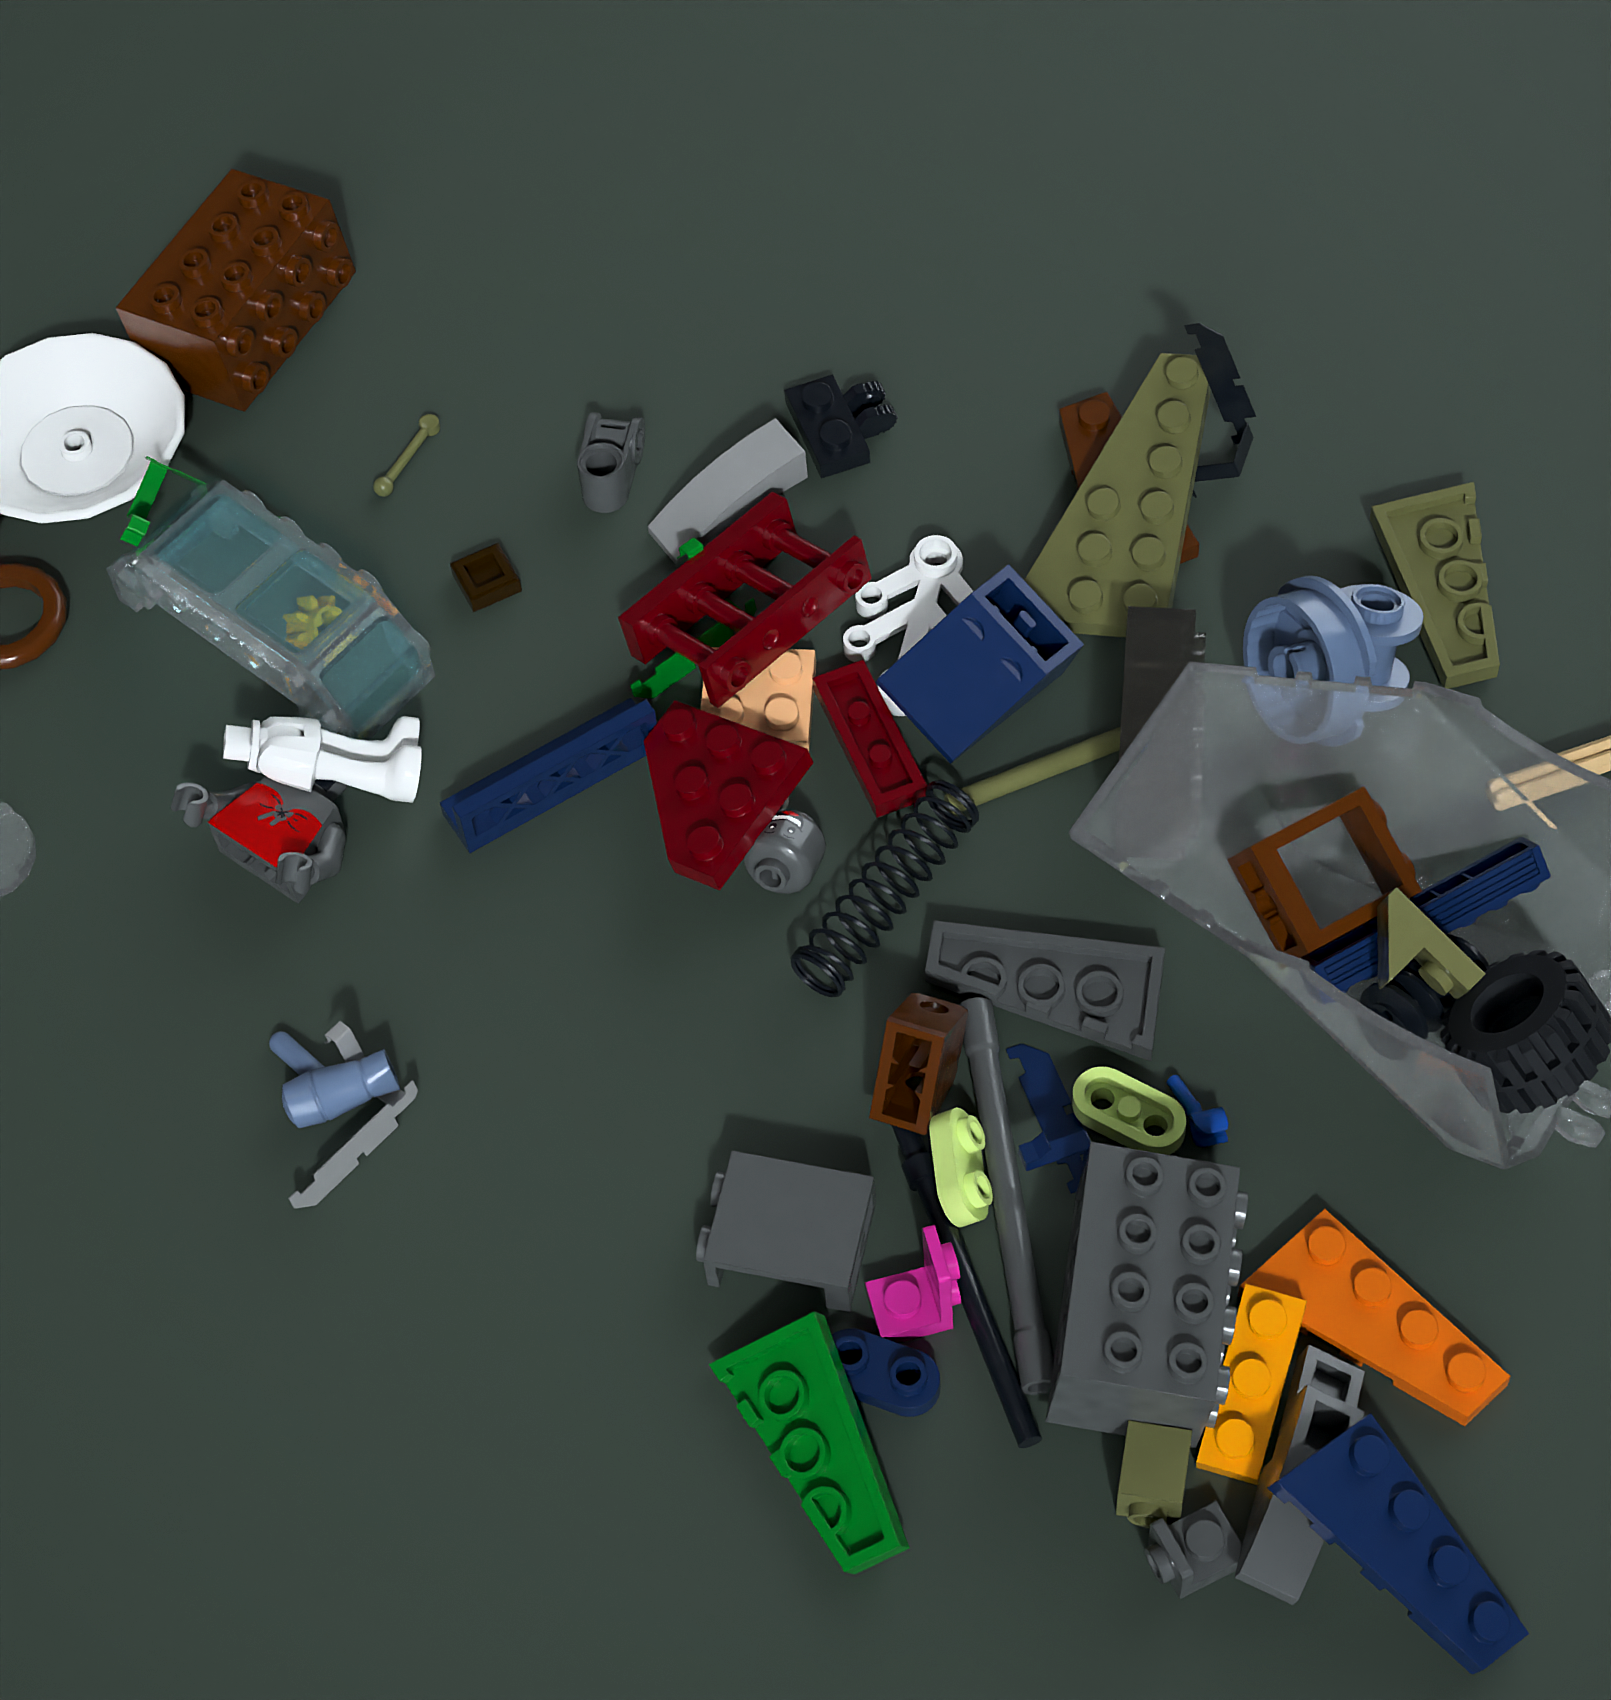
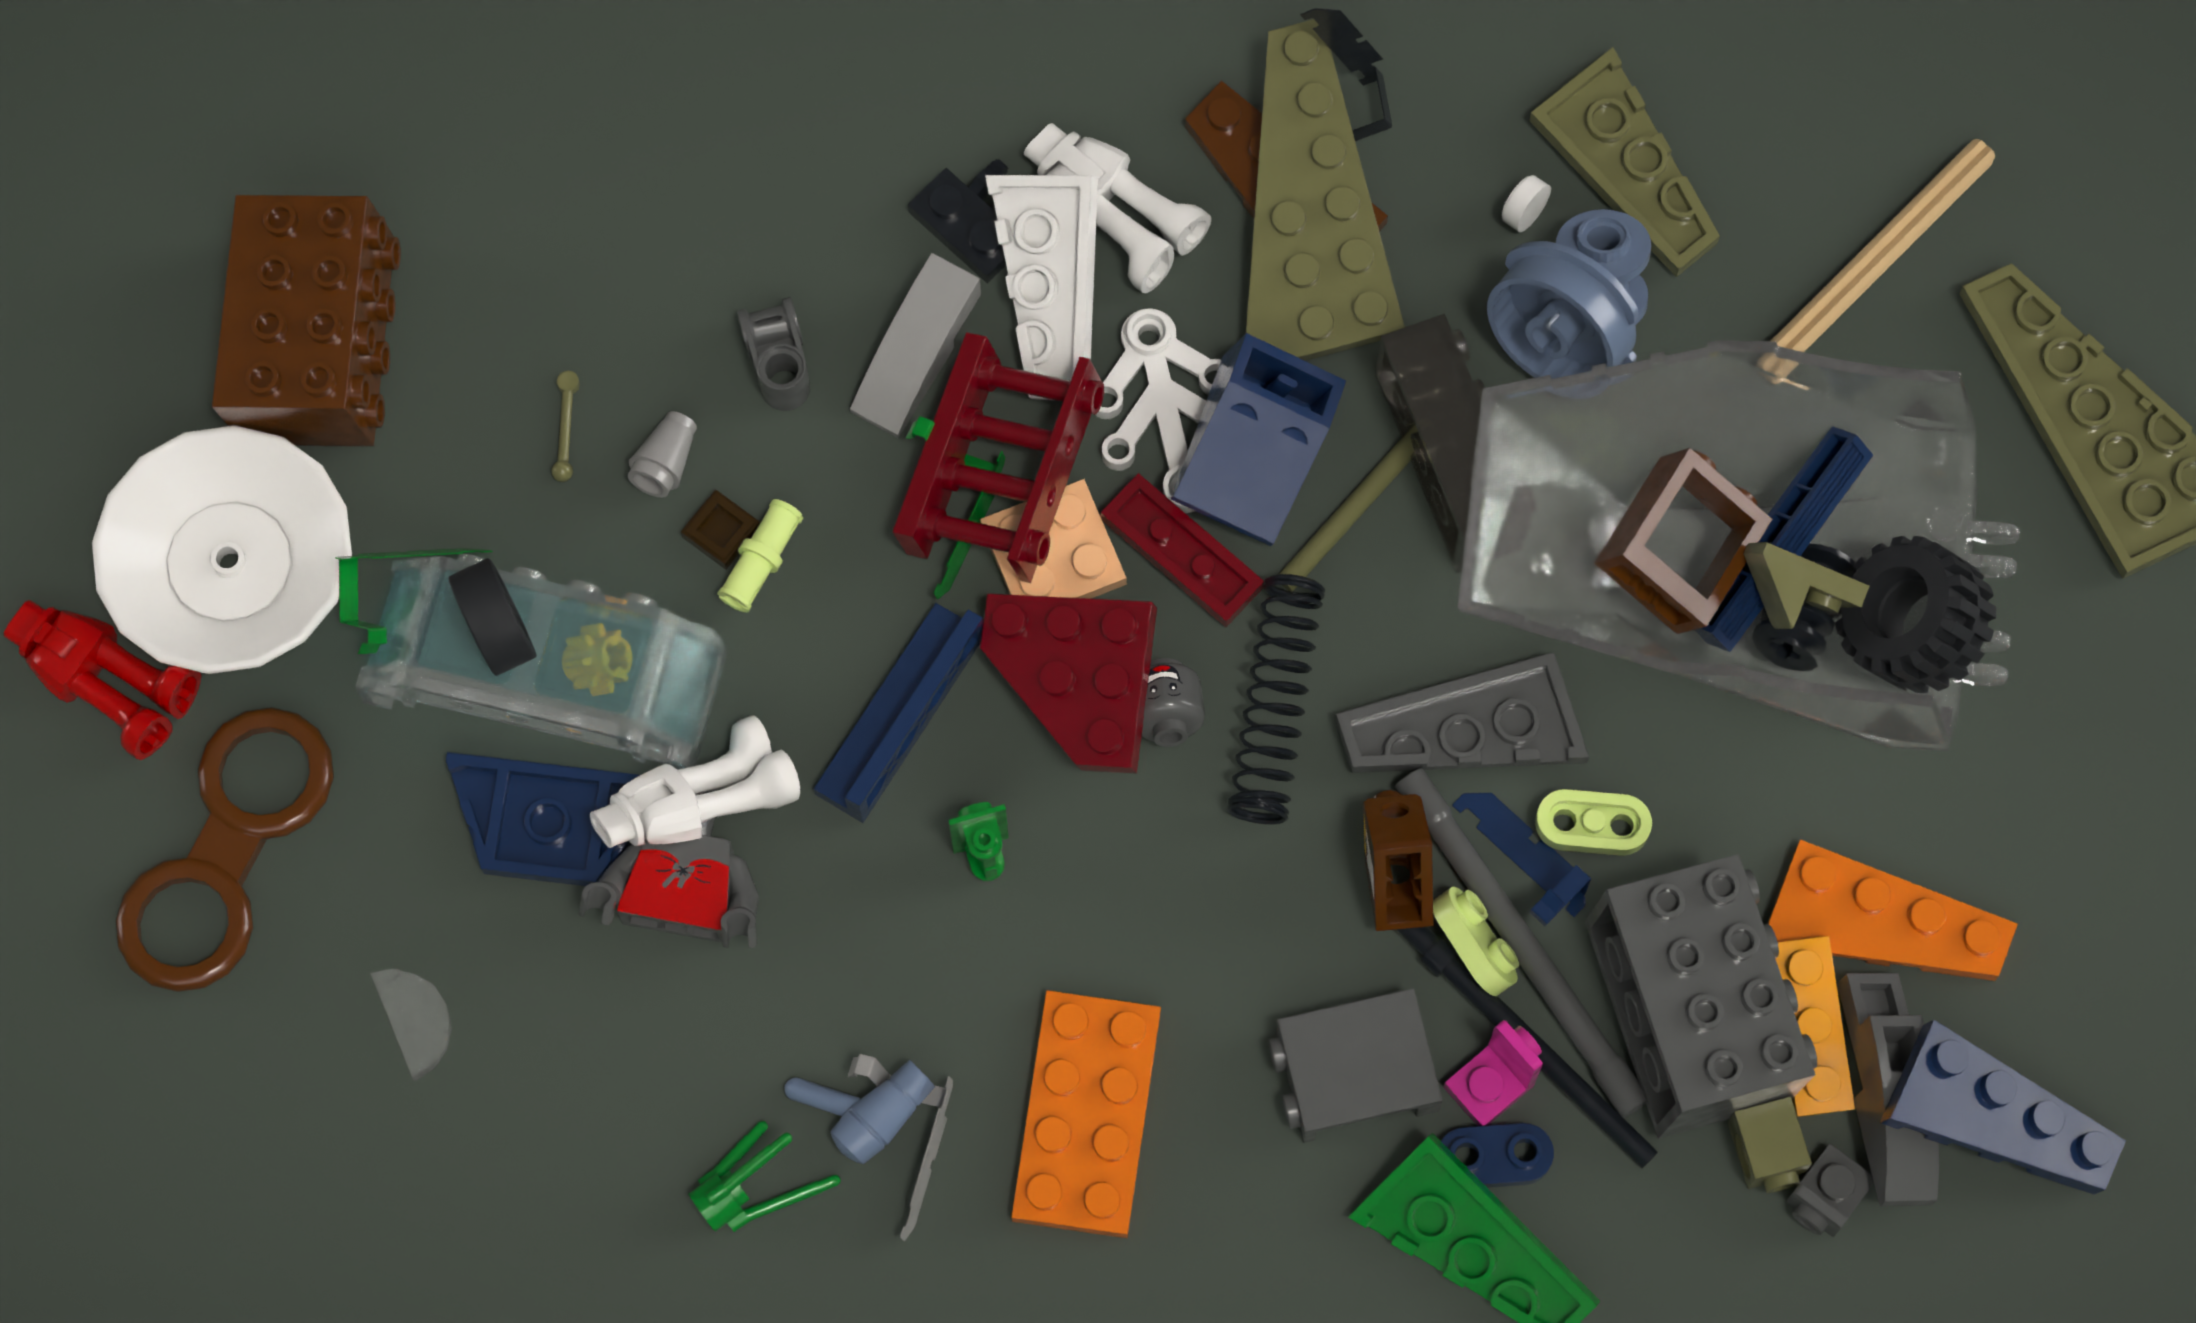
camera: 30 degrees left, 15 degrees up
(161, 1099) = (720, 1192): none -> green plant
(183, 729) = (535, 817): none -> dark blue wing
(223, 524) = (492, 617): none -> black tyre
(468, 501) = (663, 456): none -> light grey cone
(504, 605) = (760, 555): none -> yellowish green pin
(520, 1173) = (1086, 1114): none -> orange plate
(554, 888) = (980, 833): none -> green hinge
(877, 463) = (1050, 263): none -> white wing
(953, 421) = (1149, 255): none -> white piece
(1205, 1126) = (1663, 805): blue hand -> none
(1336, 568) = (1526, 203): none -> white tile

